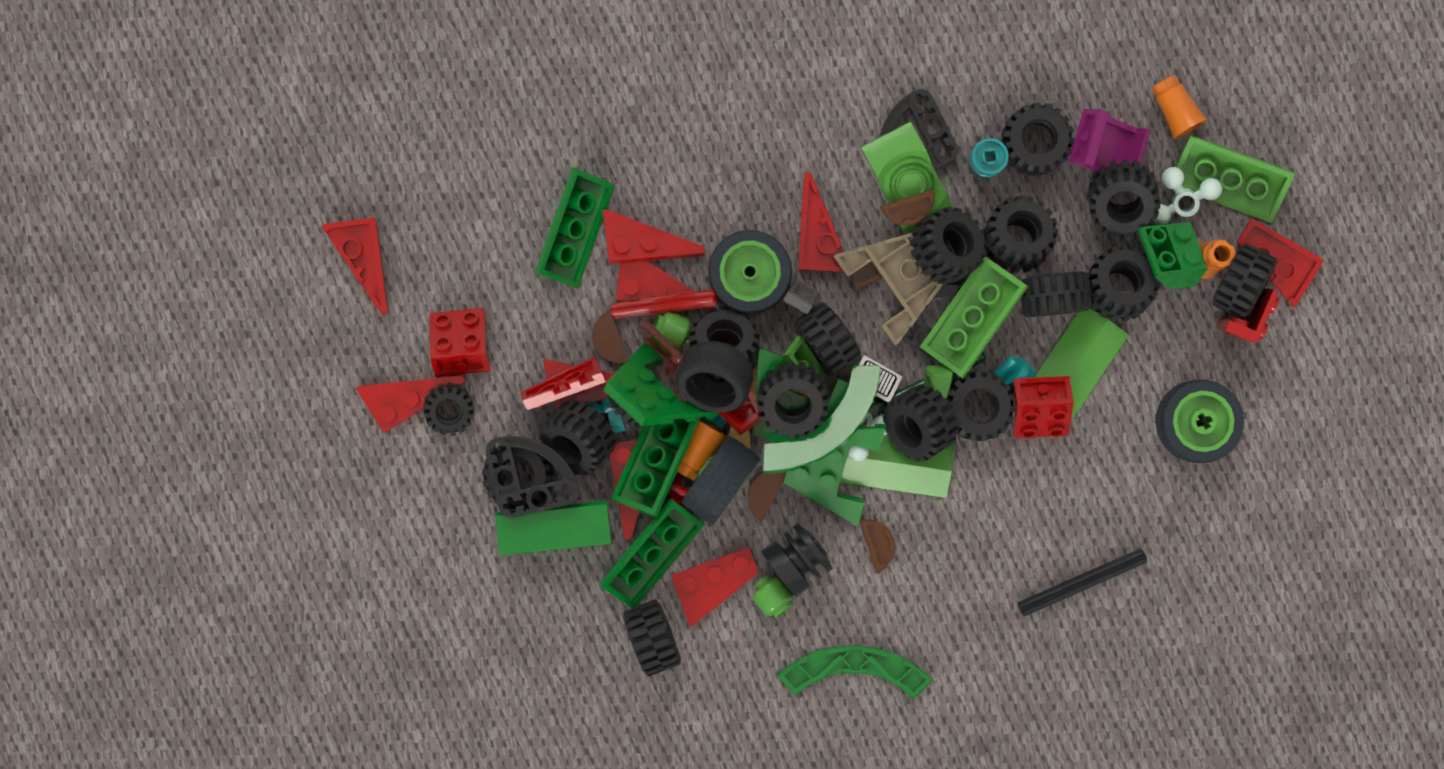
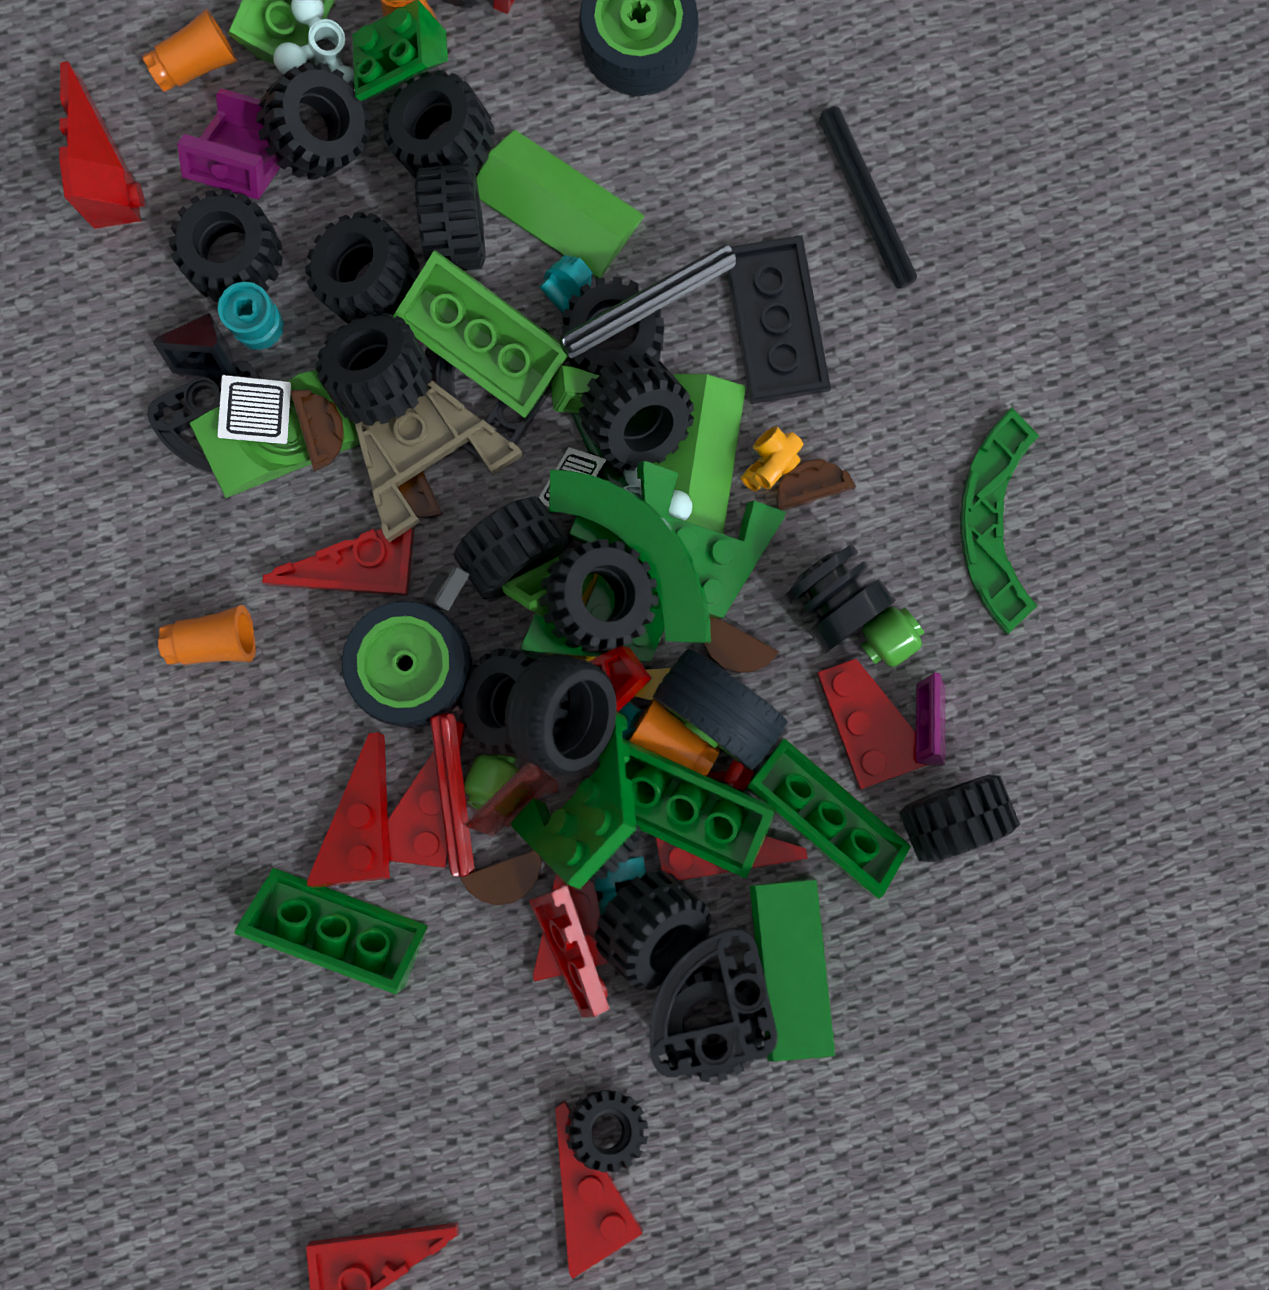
camera: 90 degrees left, 5 degrees down
(458, 342) = (505, 1113): red bracket -> none
(716, 622) = (930, 721): none -> magenta slope
(766, 138) = (209, 638): none -> orange plant
(895, 519) = (777, 458): none -> light orange plate
(919, 165) = (254, 409): none -> white sticker
(964, 122) = (197, 349): none -> black slope
(993, 519) = (777, 320): none -> black tile
(997, 430) = (647, 301): none -> axle
(1042, 406) = (614, 240): red bracket -> none
(1087, 48) = (91, 164): none -> red wedge

